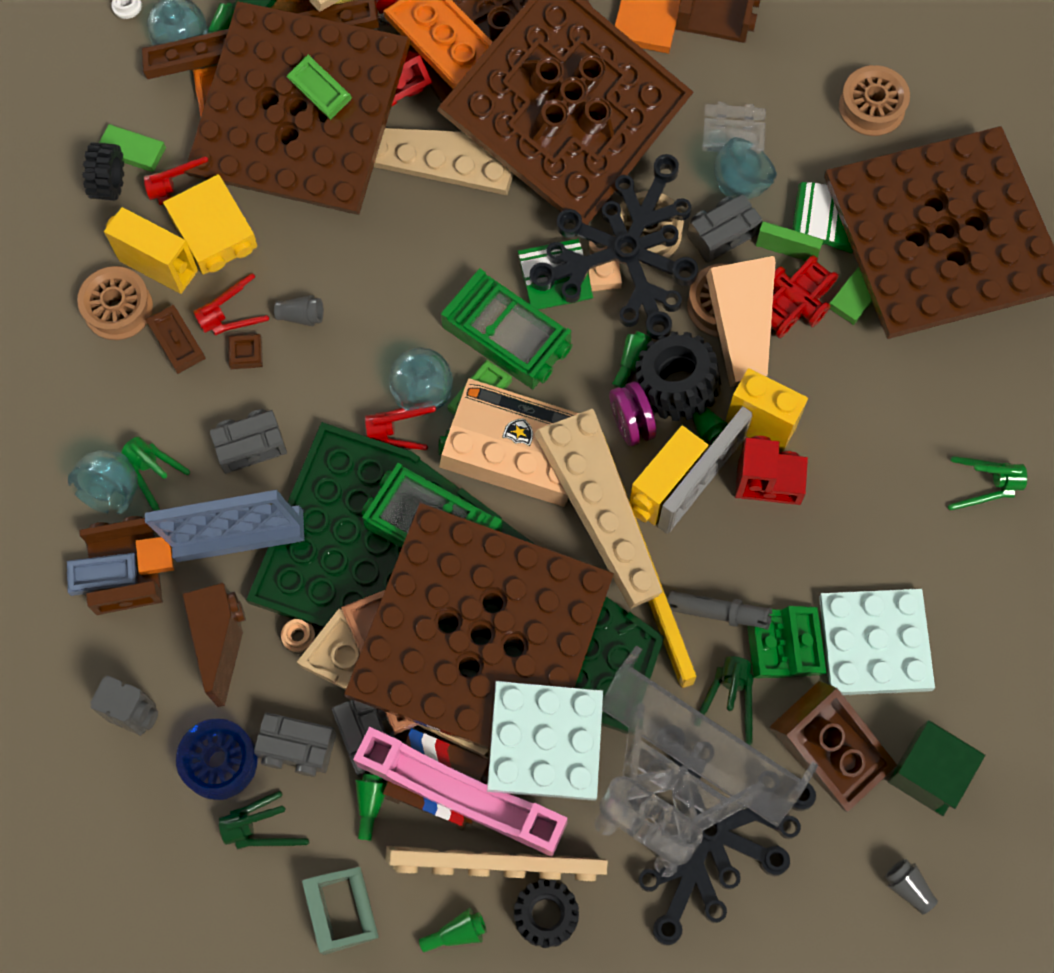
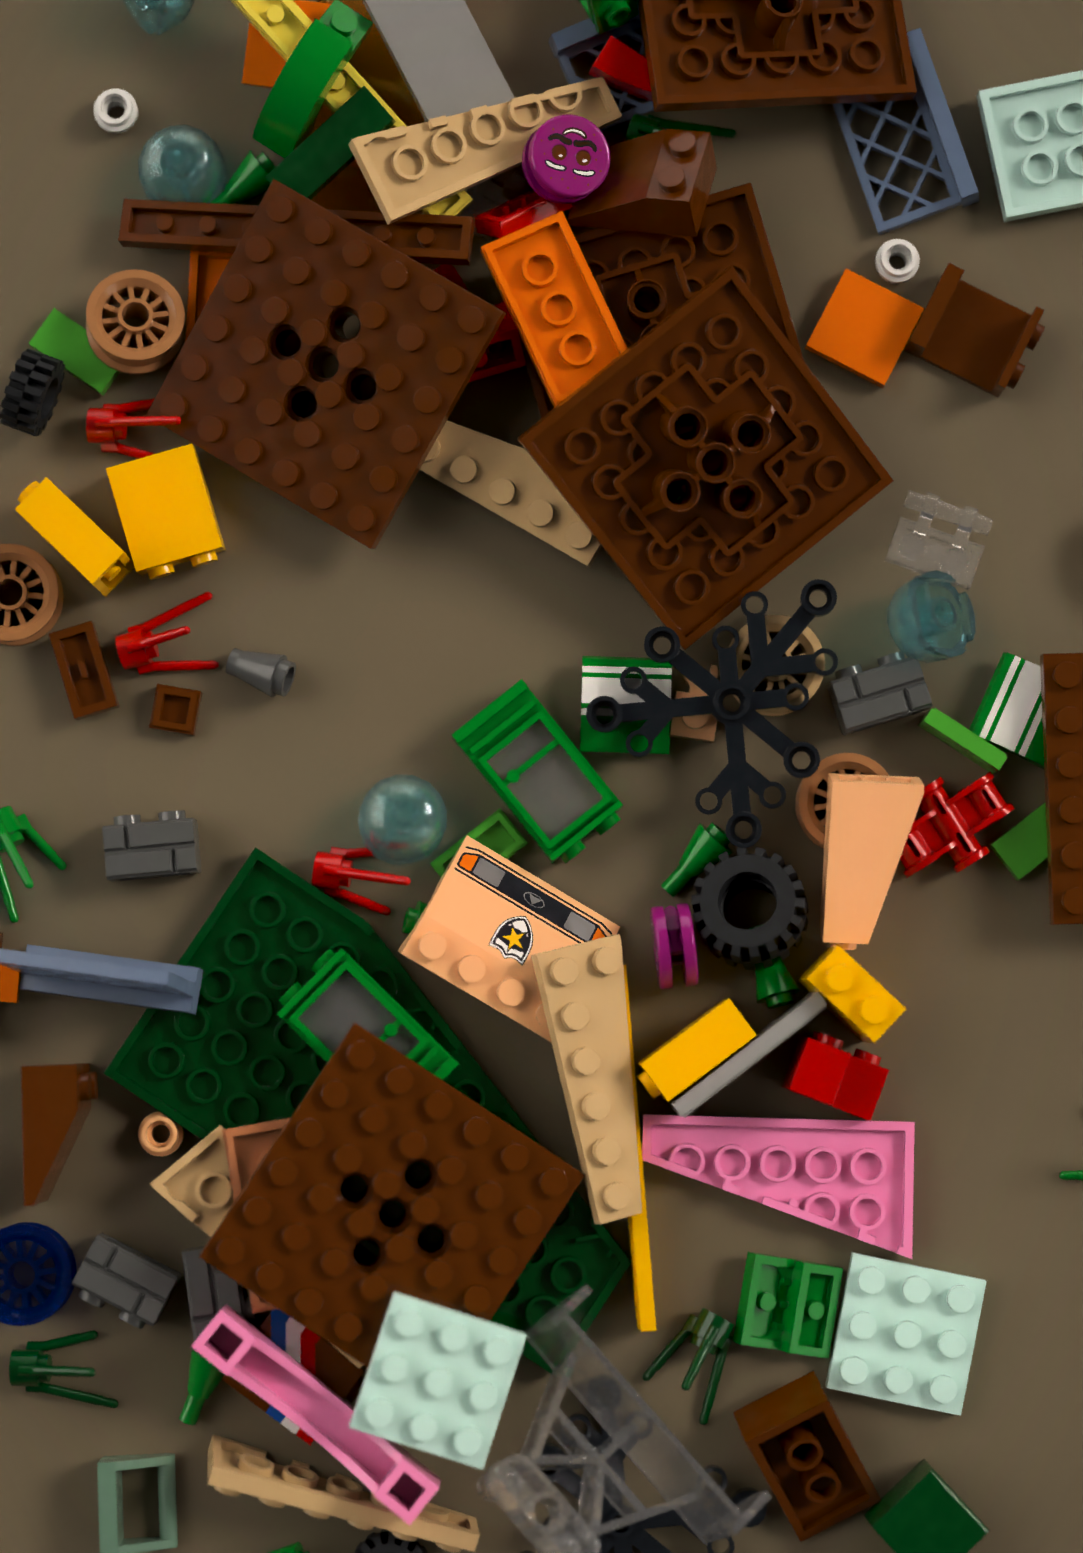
camera: 10 degrees right, 15 degrees up
(164, 117) = (149, 287): none -> medium nougat wheel
(319, 87) = (359, 355): bright green tile -> none
(731, 612) = (727, 1254): dark grey pin -> none
(778, 542) = (820, 1170): none -> bright pink wing

